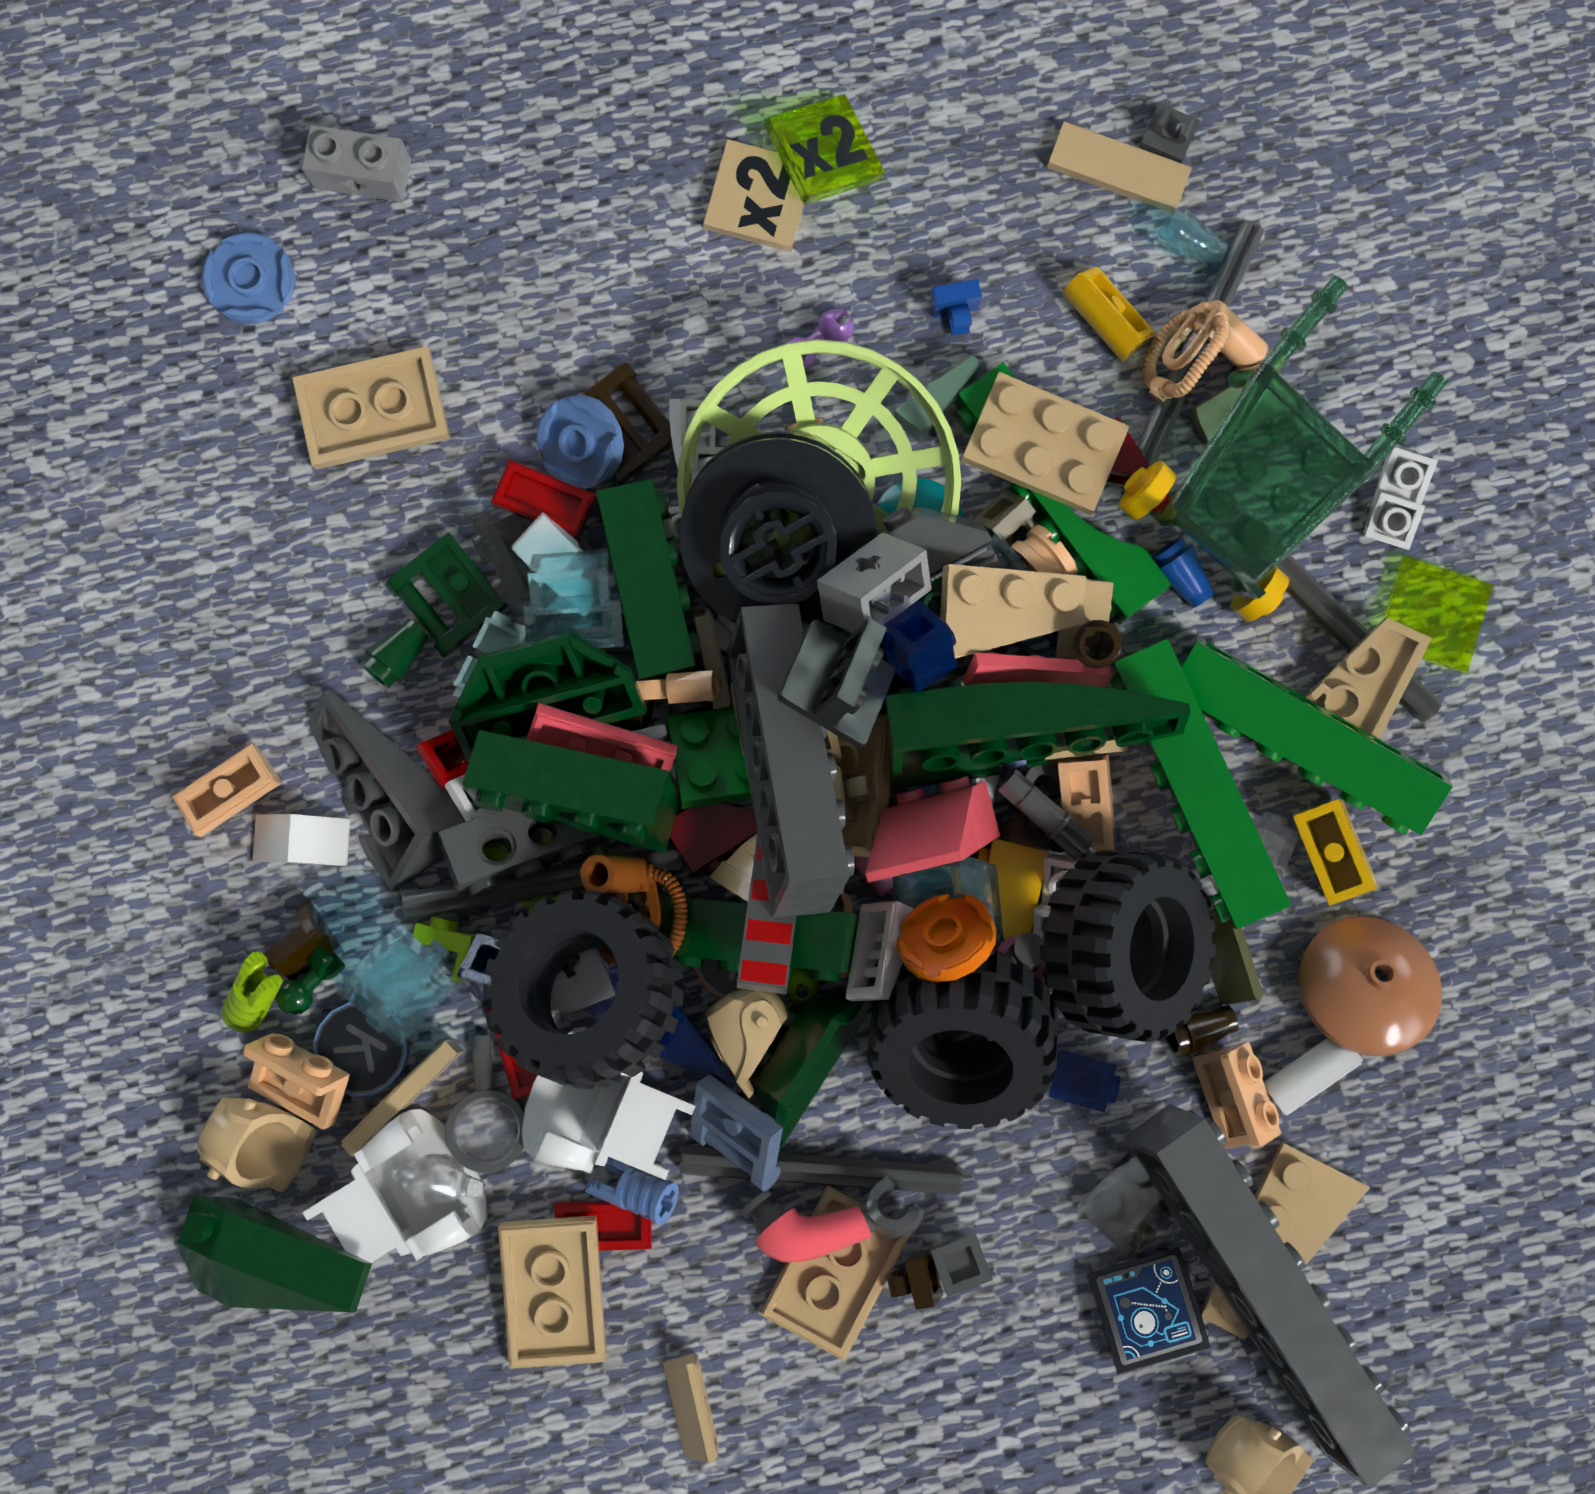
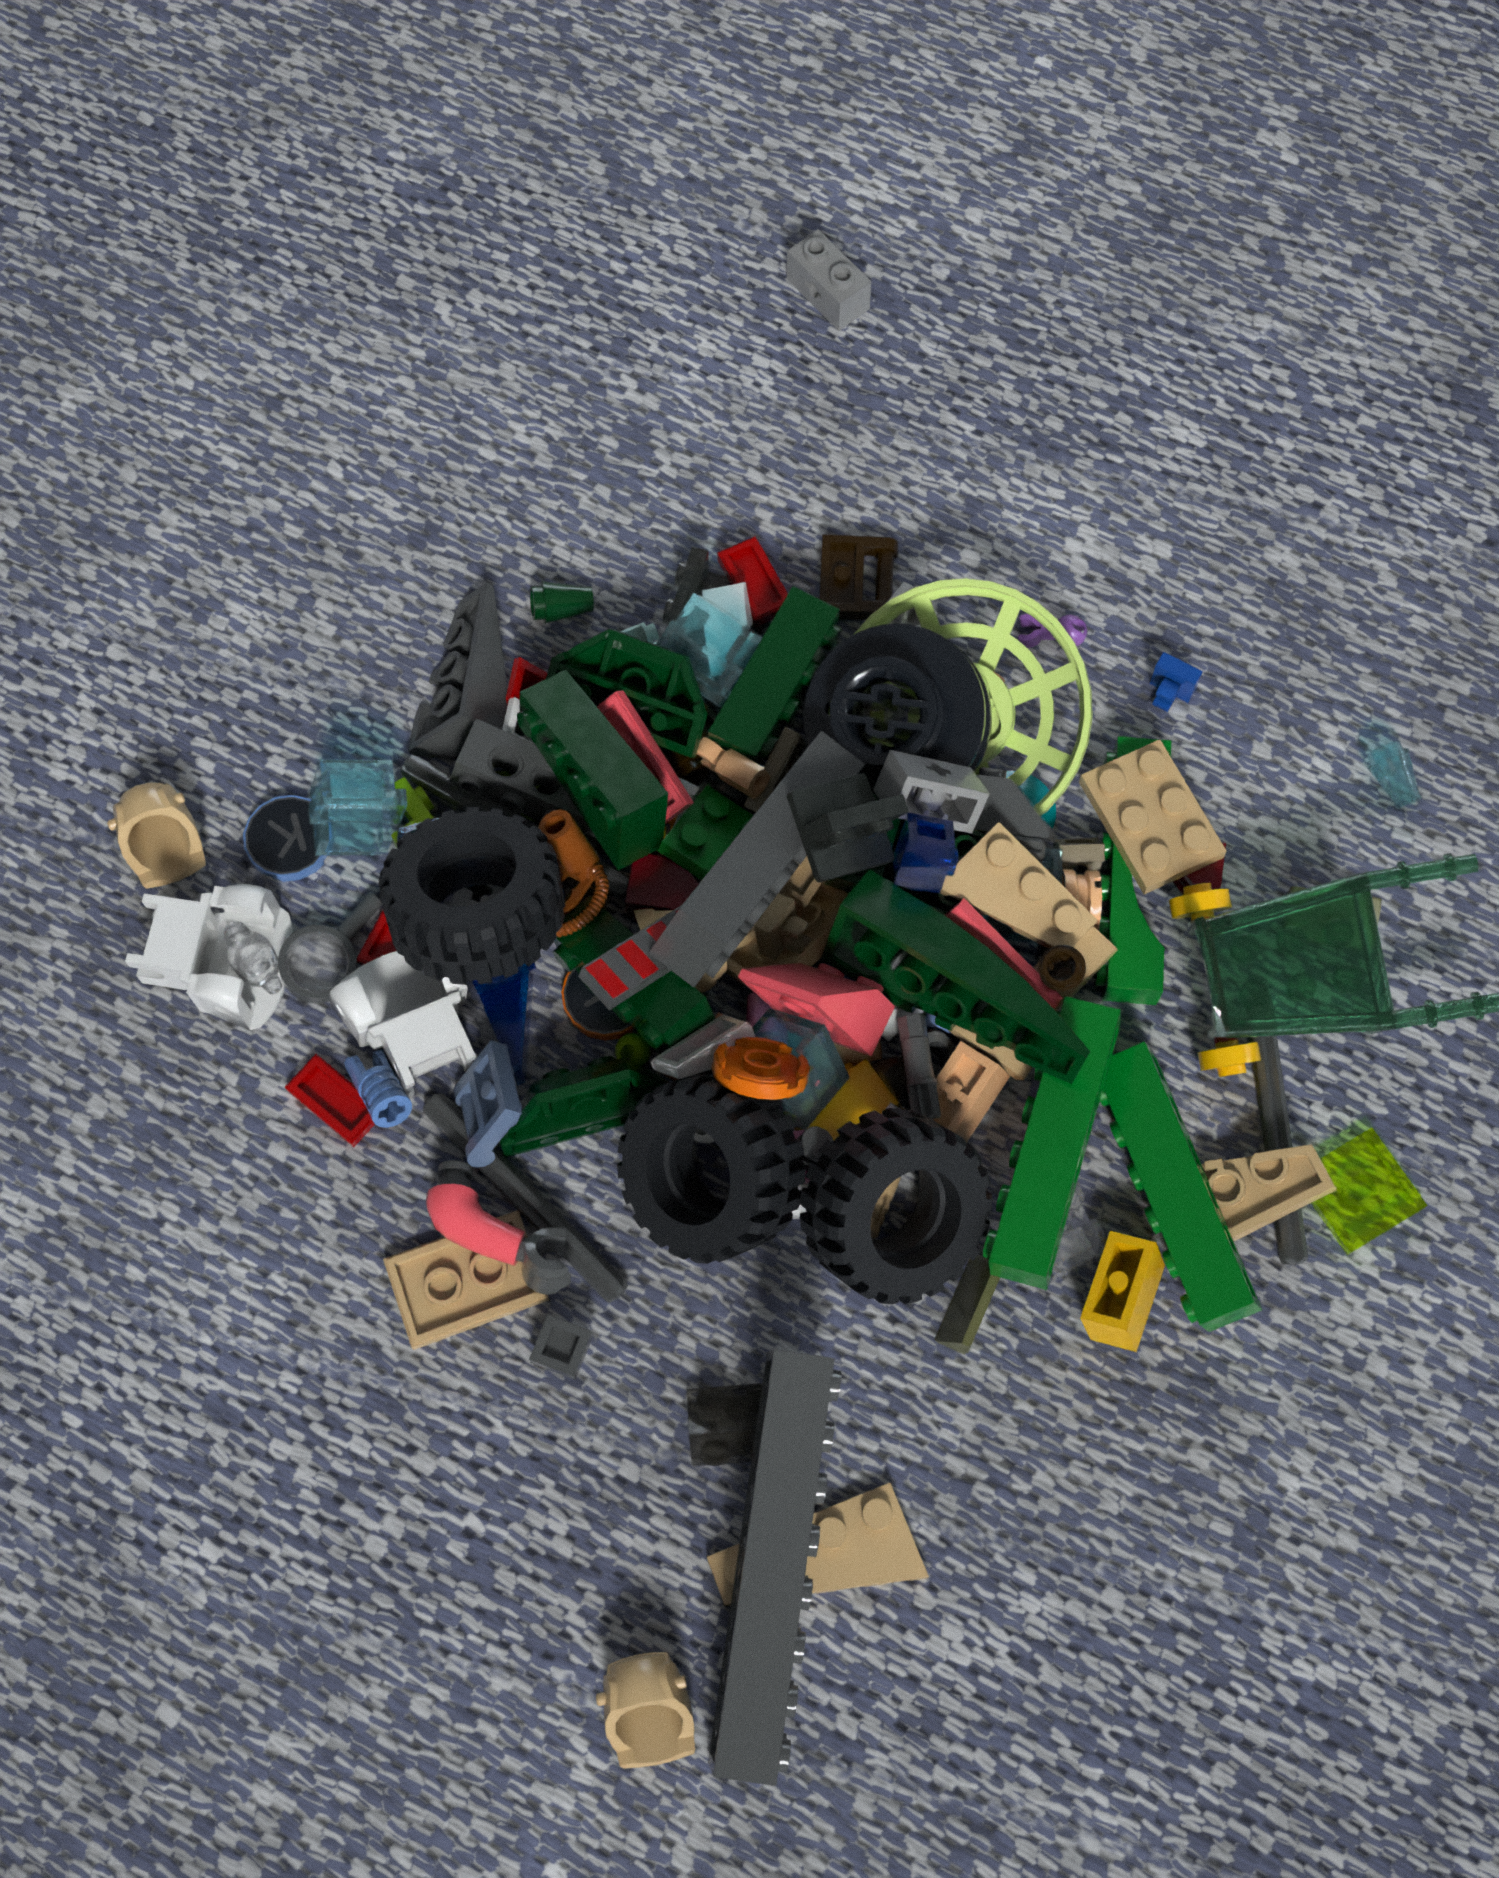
camera: 45 degrees right, 15 degrees down
(226, 790) = (364, 596): light nougat brick -> none
(250, 995) = (251, 733): lime hinge -> none
(259, 290) = (689, 312): medium blue tile -> none
(265, 1262) = (85, 910): dark green wedge -> none
(292, 952) = (315, 734): dark brown tile -> none
(296, 1079) = (226, 814): light nougat bracket -> none
(297, 993) = (280, 764): dark green arm -> none
(301, 839) = (383, 669): white slope -> none
(371, 408) = (694, 437): tan plate -> none
(402, 1095) = (299, 887): tan tile -> none
(458, 584) = (644, 591): dark green plate -> none
(552, 1291) = (255, 1112): tan tile -> none
(580, 441) = (817, 560): medium blue tile -> none
(692, 1408) = (274, 1283): tan slope -> none
(743, 1029) = (559, 1038): tan helmet -> none
(754, 198) = (1093, 508): tan tile -> none
(824, 149) = (1167, 510): clear neon green tile -> none
(918, 1279) = (518, 1333): dark brown tile -> none
(945, 391) = (1103, 731): sand green slope -> none
(1084, 1081) = (774, 1291): clear blue brick -> none
(1108, 312) = (1285, 775): yellow brick -> none
(1119, 167) = (1382, 686): tan tile -> none
(1148, 1311) = (670, 1516): slope -> none
(1169, 133) = (1442, 693): dark grey tile -> none
(1184, 571) = (1183, 997): blue cone -> none
(1202, 1030) = (900, 1338): dark brown cone -> none
(1209, 322) = (1354, 833): light nougat piece -> none
(1223, 289) = (1341, 849): dark grey axle -> none
(1237, 1095) = (884, 1408): light nougat bracket -> none
(1310, 1075) = (956, 1448): white brick -> none
(1352, 1003) = (1050, 1437): nougat dish -> none
(1399, 498) = (1405, 1082): white slope -> none

